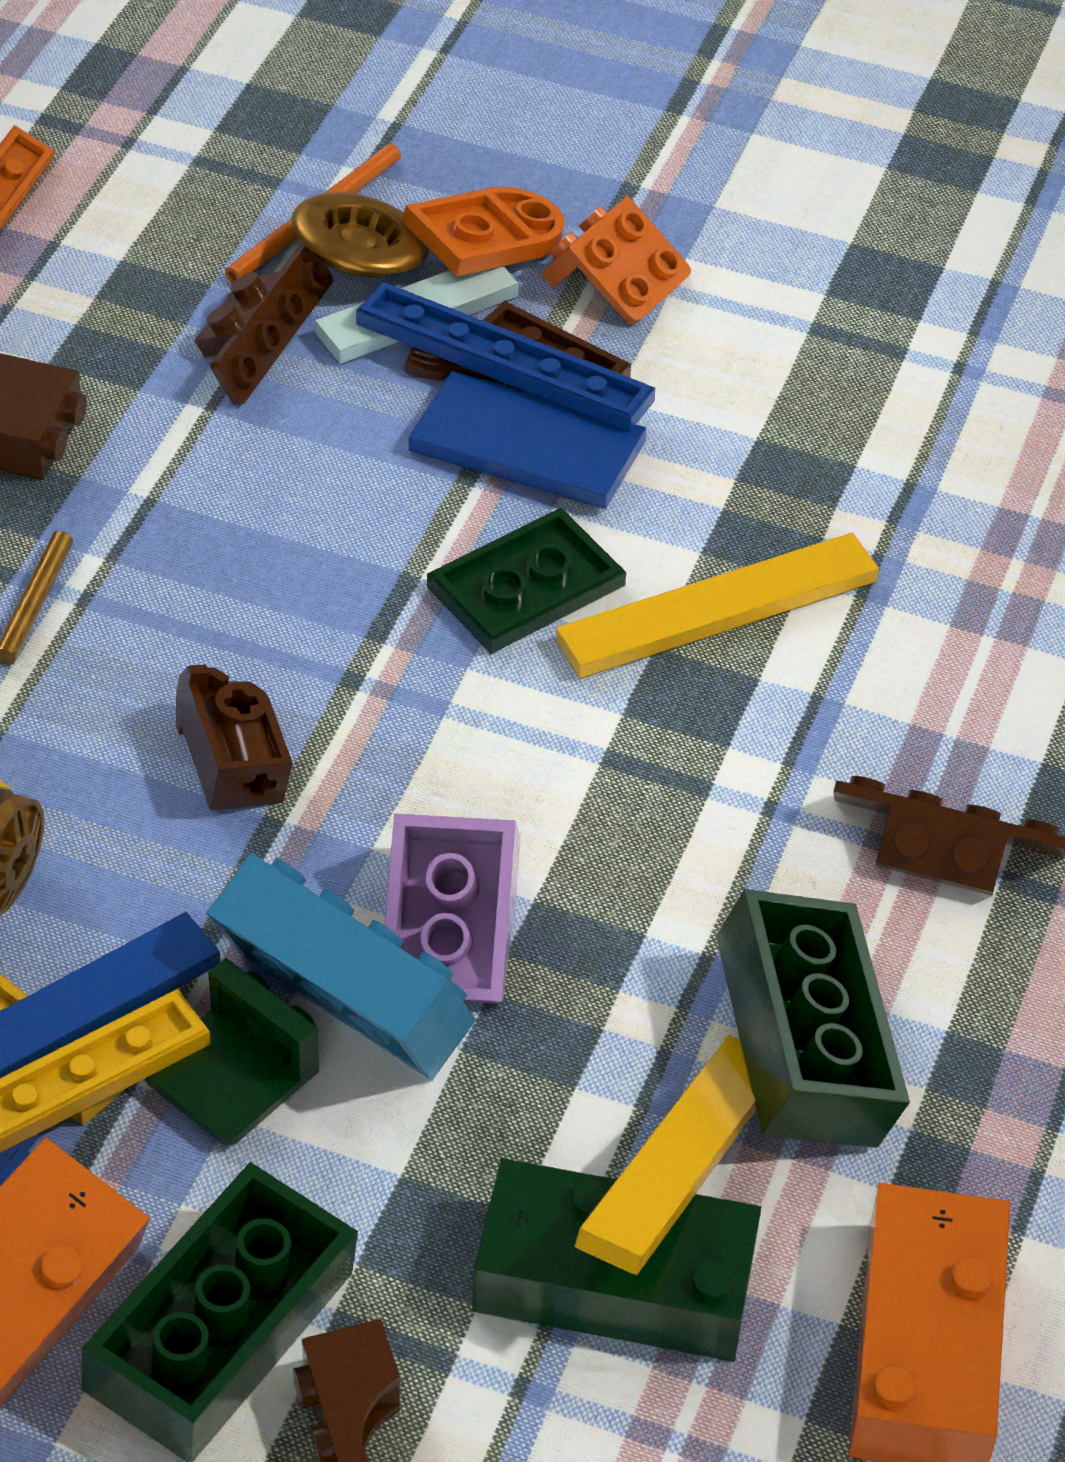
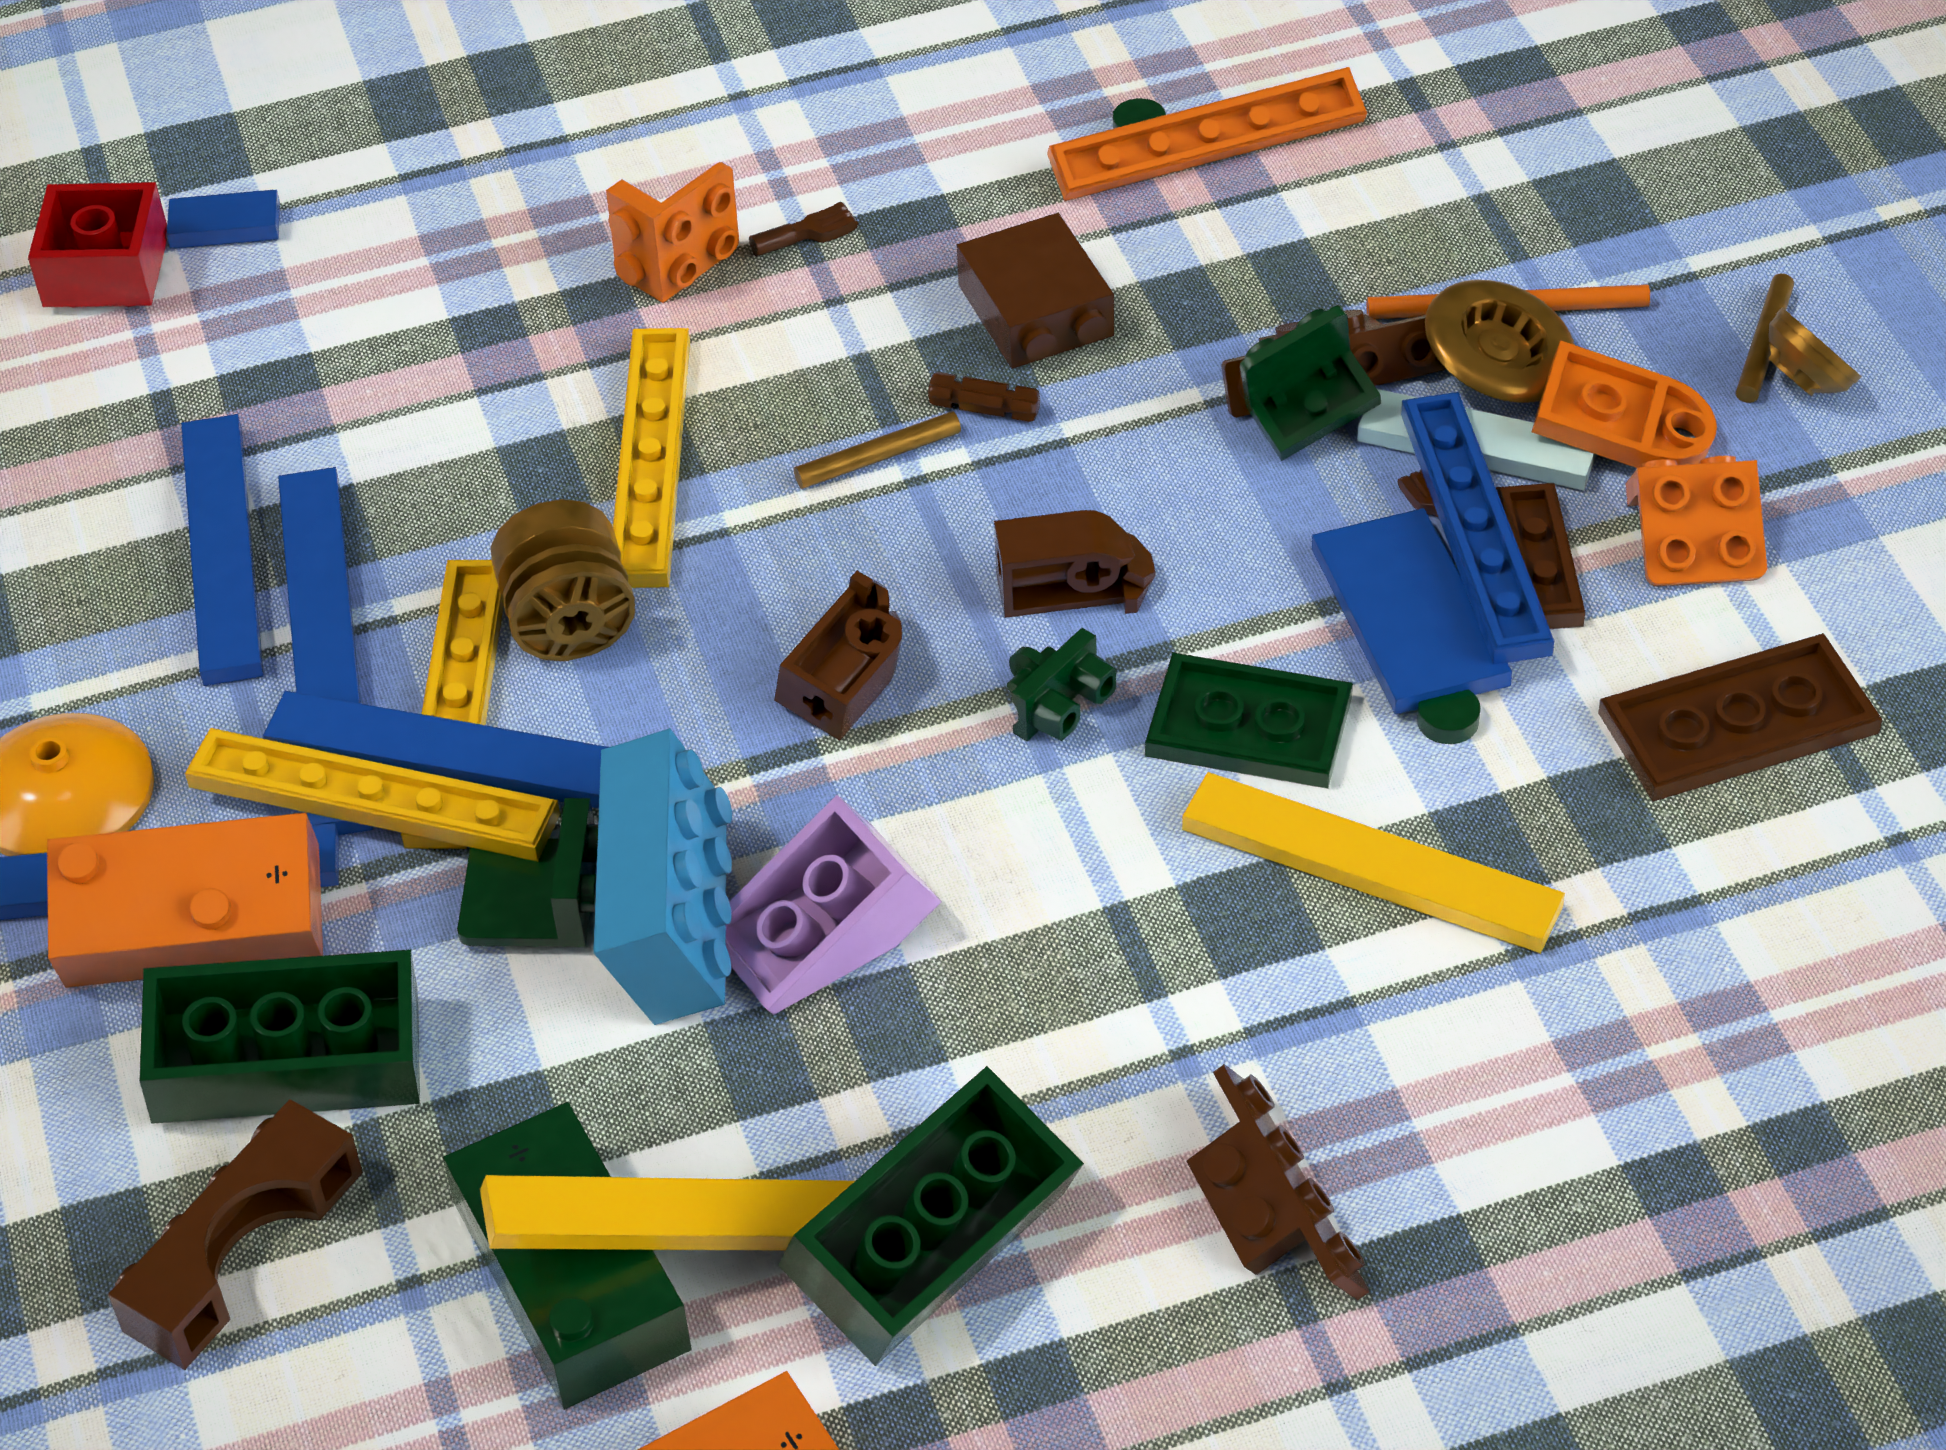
camera: 55 degrees right, 0 degrees up
(60, 508) = (984, 396): none -> reddish brown axle
(285, 571) = (1069, 563): none -> reddish brown piece
(293, 343) = (1306, 382): none -> dark green bracket
(400, 668) = (1051, 680): none -> dark green hips
(496, 132) = (1759, 352): none -> pearl gold bar
(551, 119) = (1807, 358): none -> pearl gold piece
(638, 486) = (1449, 717): none -> dark green tile
(790, 363) = (1739, 716): none -> reddish brown tile

